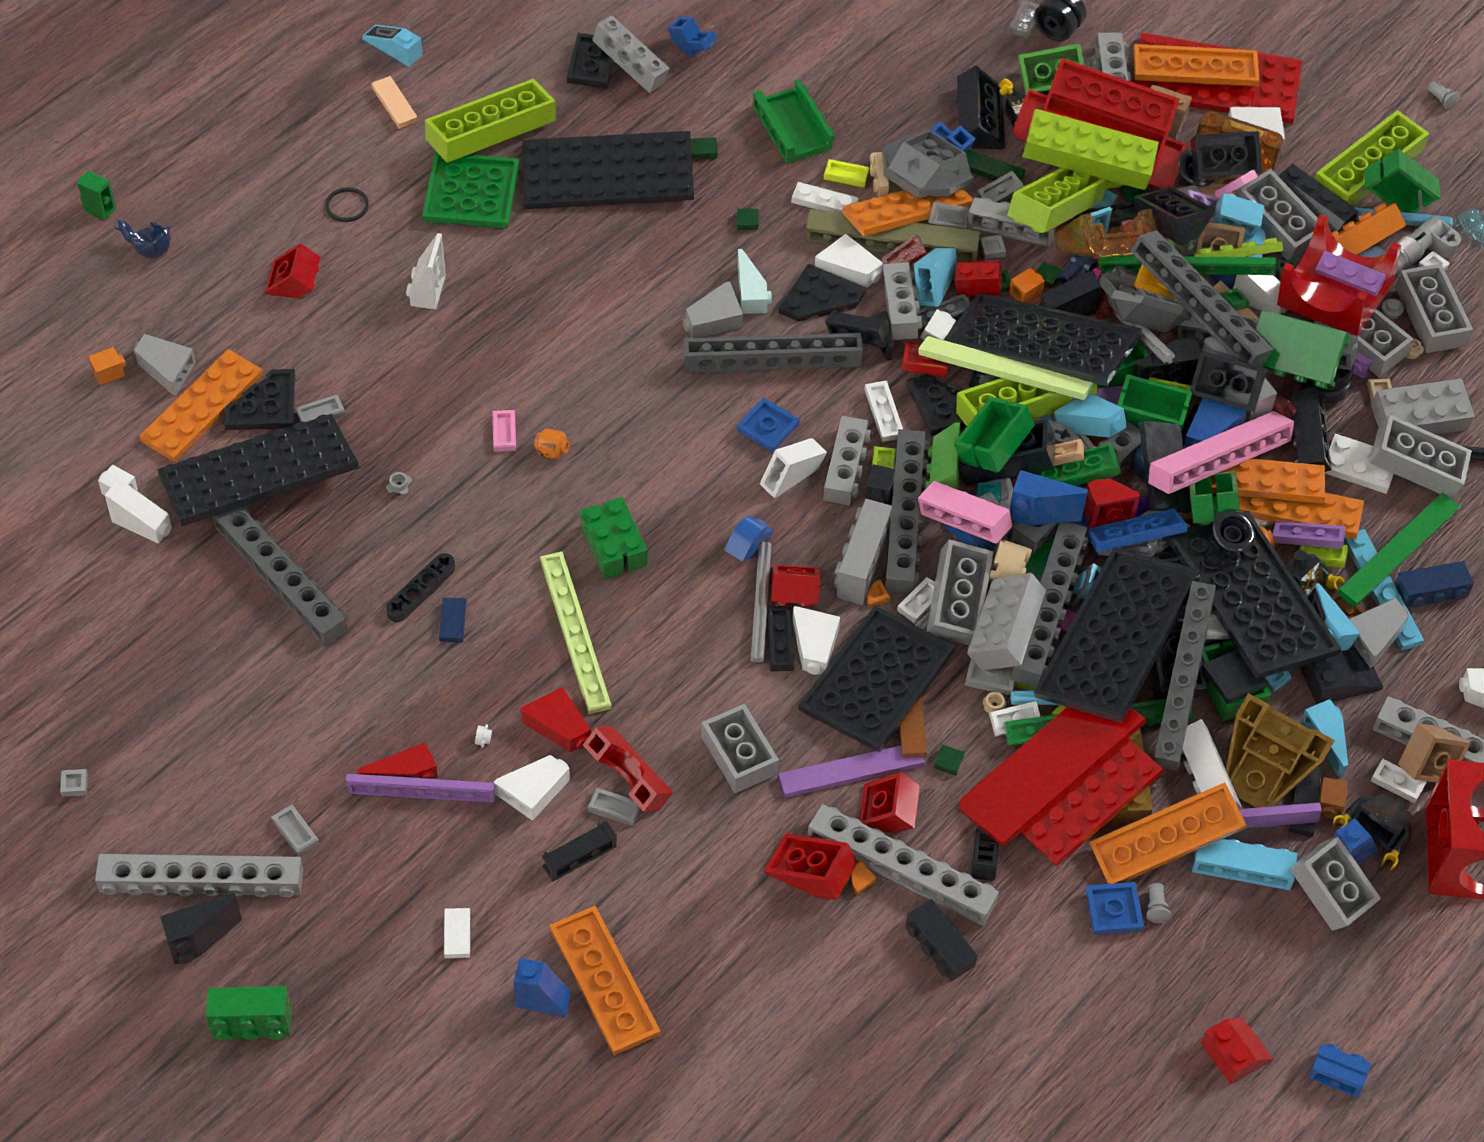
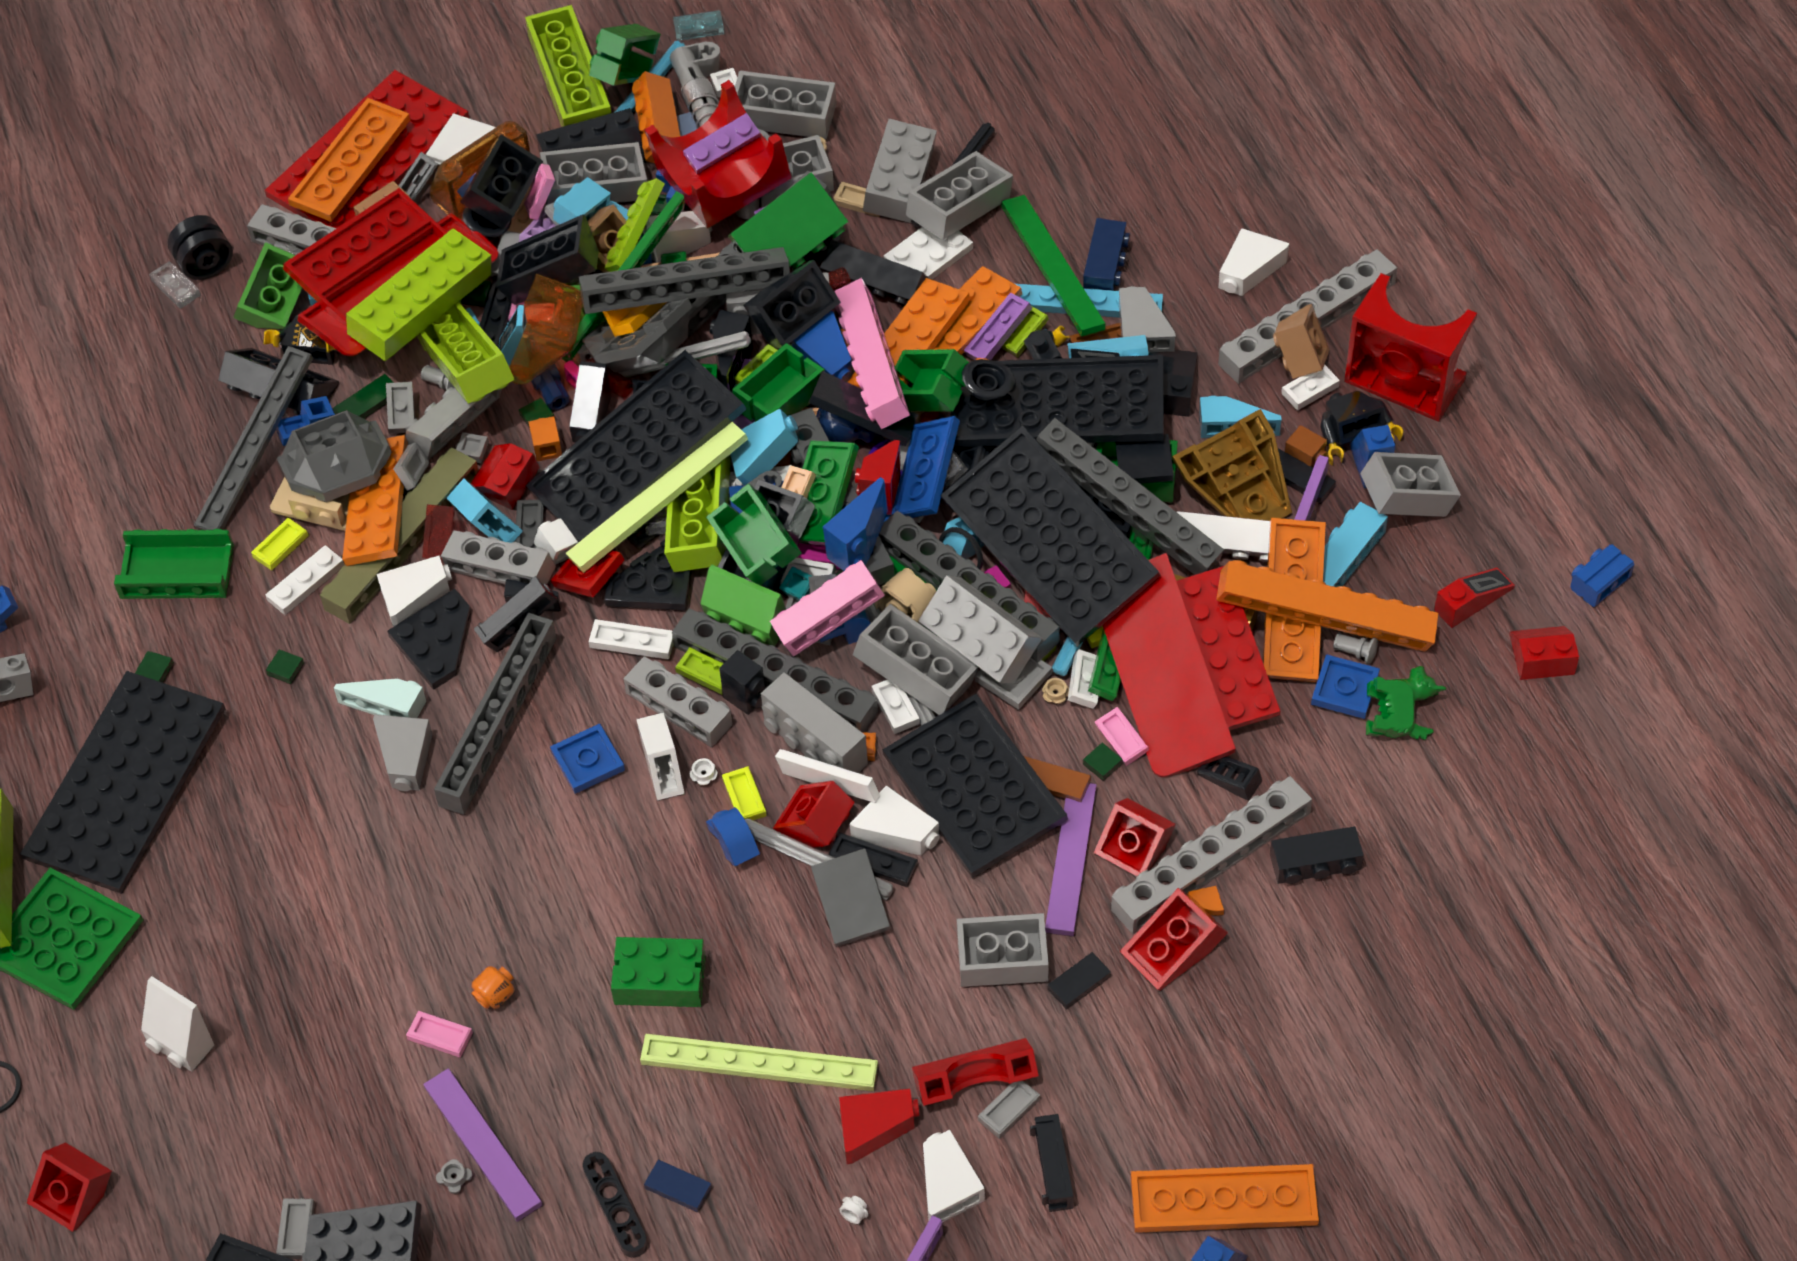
camera: 60 degrees left, 0 degrees up
(430, 491) = (482, 1145): none -> medium lavender tile
(736, 633) = (850, 897): none -> dark grey tile
(745, 814) = (1079, 980): none -> black tile
(791, 535) = (744, 793): none -> neon yellow tile
(796, 496) = (700, 766): none -> white plate
(828, 576) = (817, 771): none -> white tile
(915, 116) = (254, 440): none -> dark grey tile
(978, 764) = (1121, 736): none -> bright pink tile
(1115, 950) = (1398, 704): none -> green animal
(1170, 859) = (1327, 605): none -> orange brick
(1195, 113) = (420, 181): none -> dark grey tile
(1261, 974) = (1470, 595): none -> red slope

